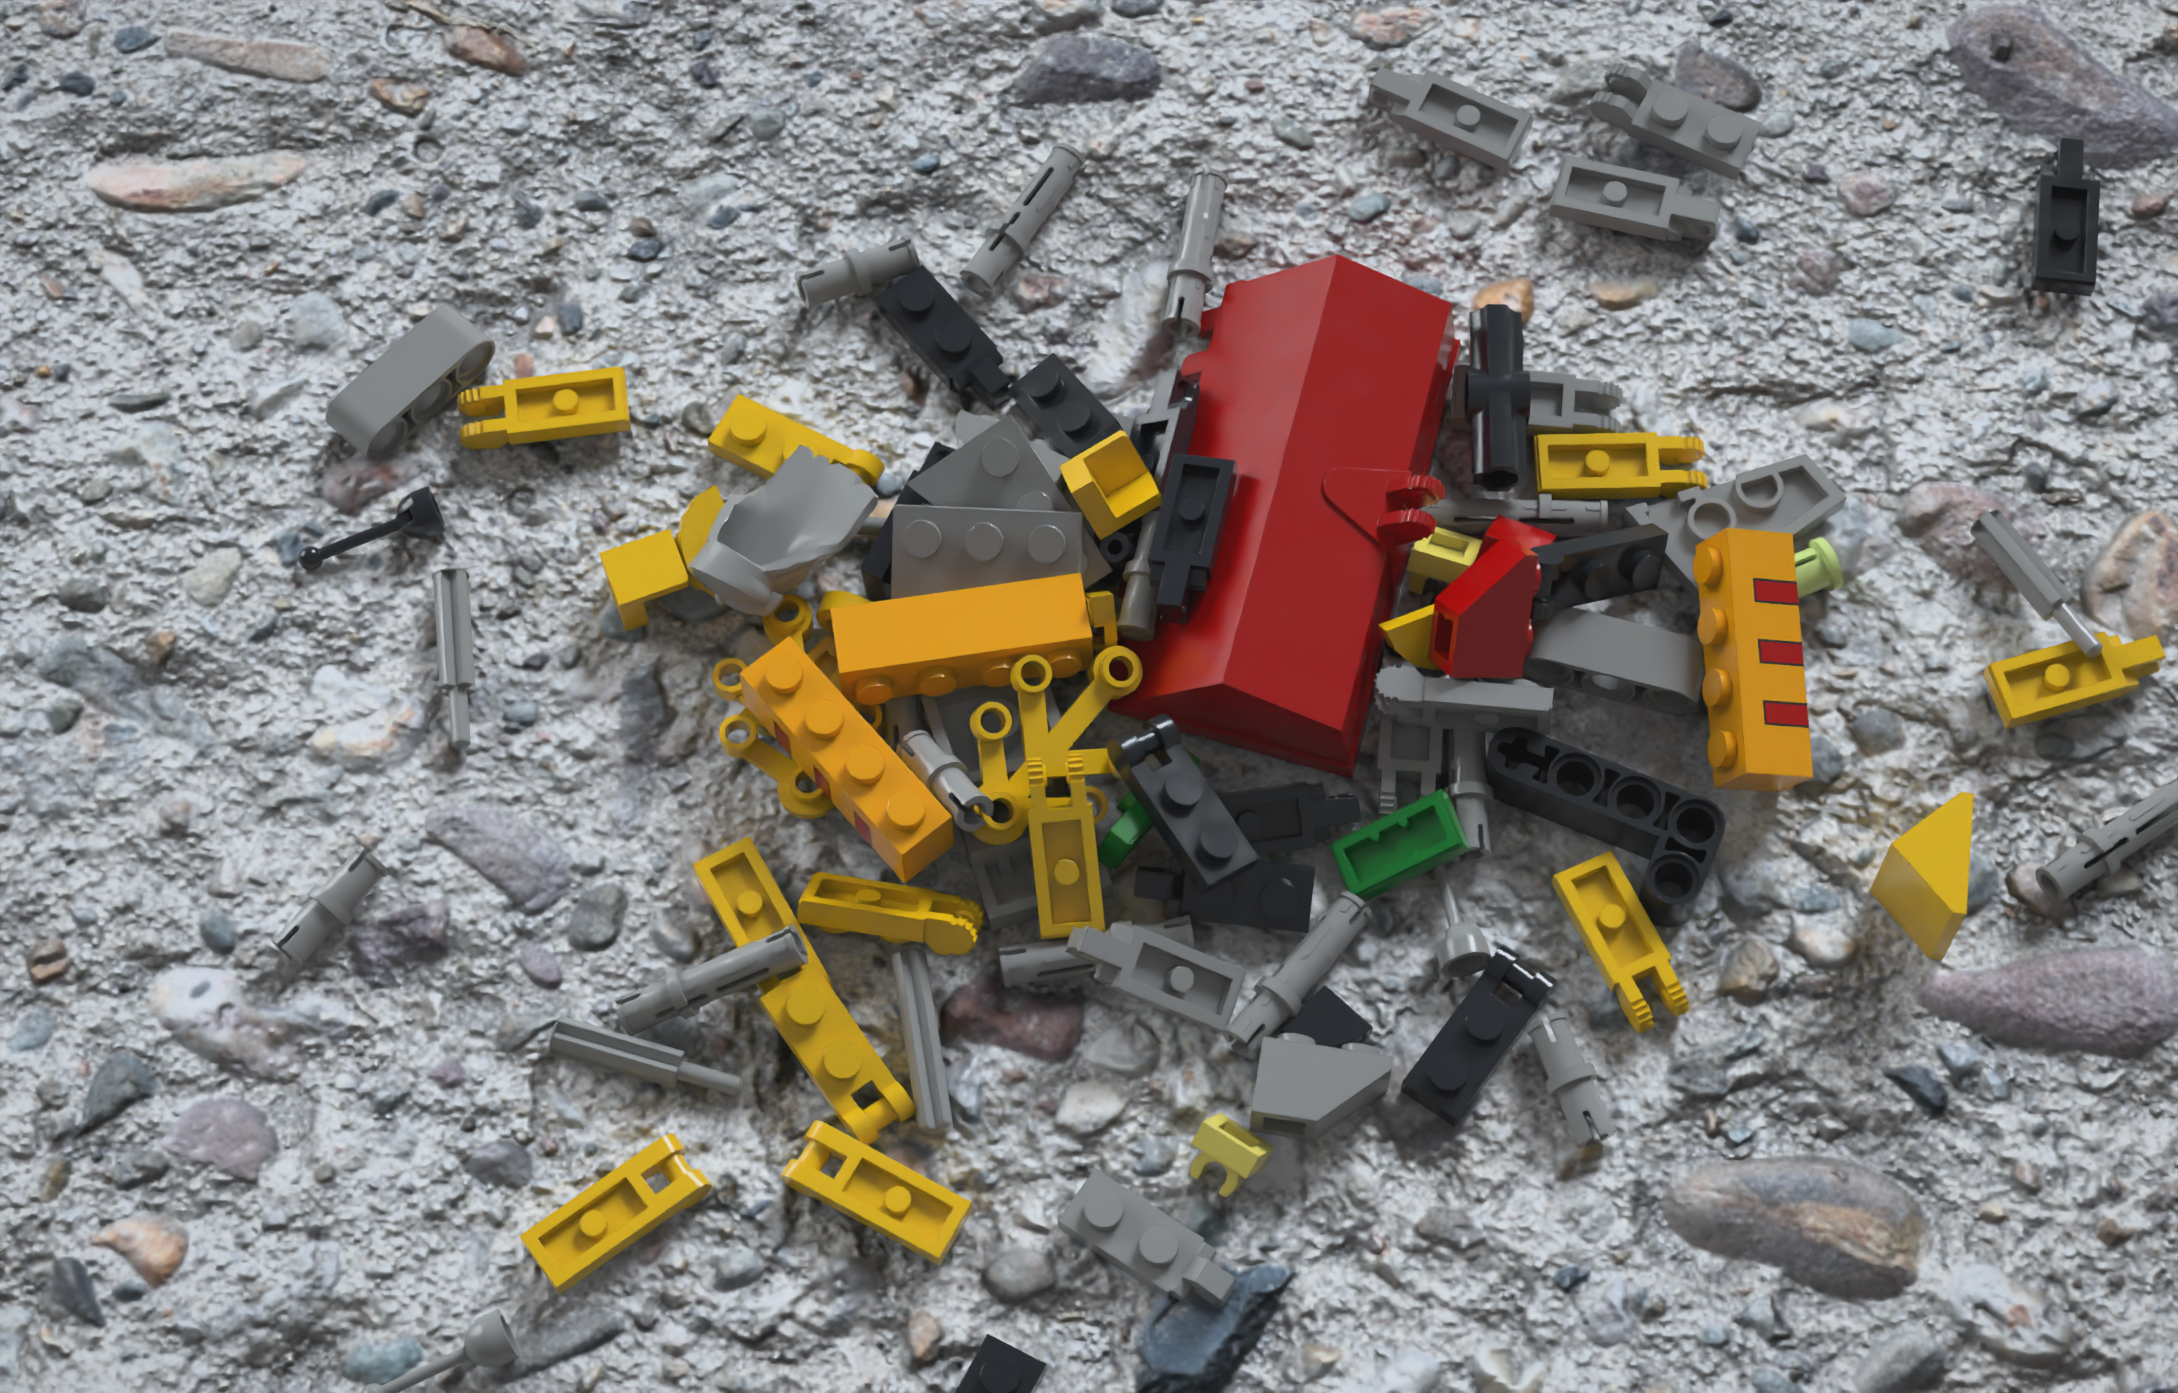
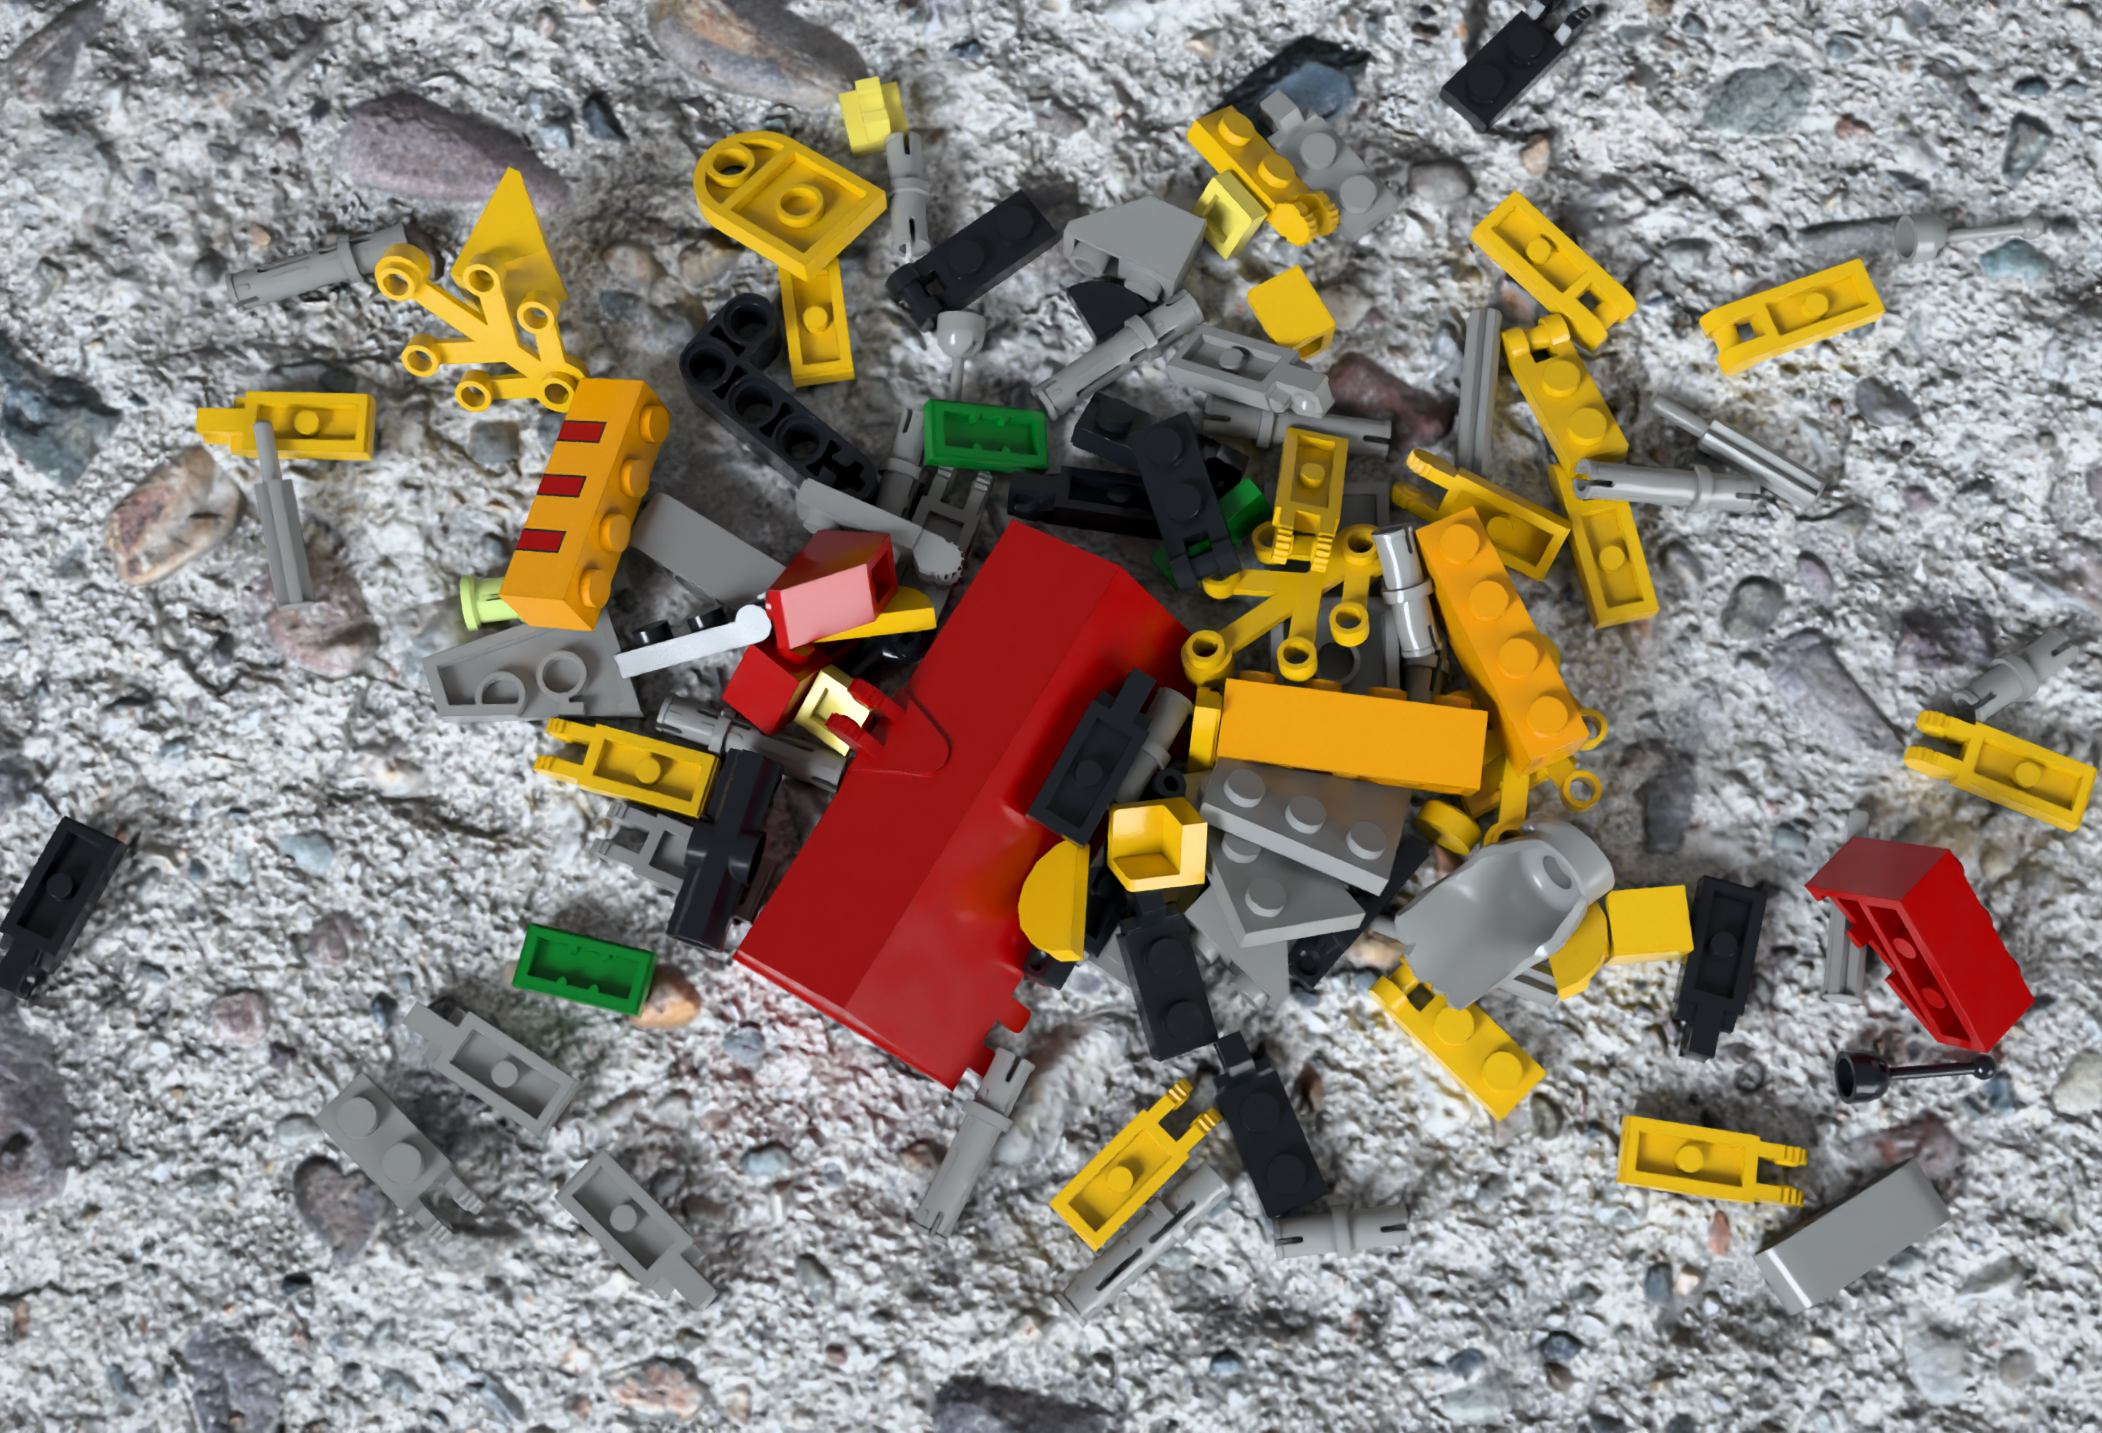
camera: 165 degrees left, 10 degrees up
(327, 815) = (2005, 770): none -> yellow hinge
(390, 619) = (1932, 936): none -> red wedge
(571, 573) = (1718, 971): none -> black hinge
(1051, 273) = (1129, 1170): none -> yellow hinge
(1133, 1050) = (1293, 313): none -> yellow panel
(1184, 409) = (1055, 902): none -> yellow tile
(1213, 1204) = (1233, 144): none -> yellow hinge
(1583, 295) = (585, 970): none -> green plate
(1637, 1159) = (872, 115): none -> light yellow tile
(1689, 1024) = (785, 200): none -> yellow tile
(1932, 787) = (489, 337): none -> yellow plant

